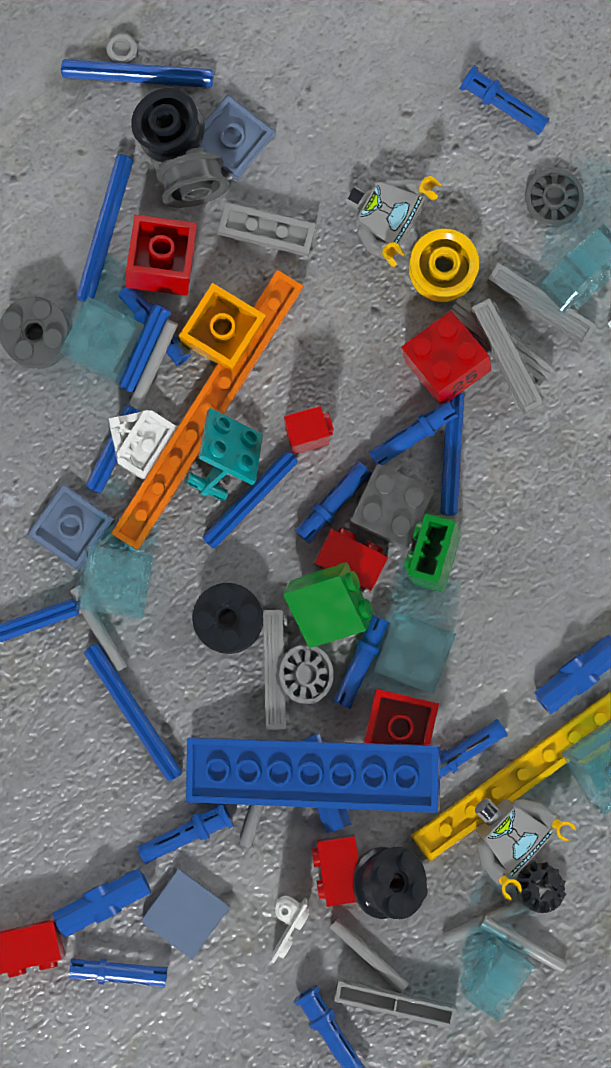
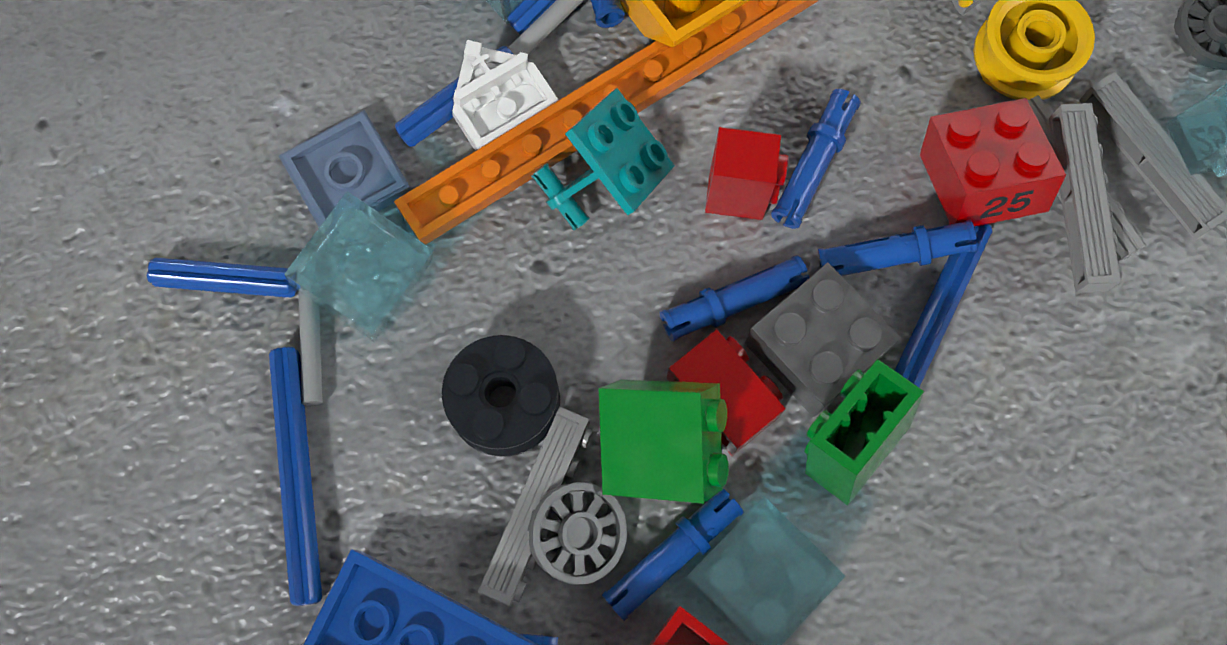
camera: 25 degrees right, 10 degrees down
(250, 499) = (615, 243): blue axle -> none
(344, 394) = (824, 141): none -> blue pin

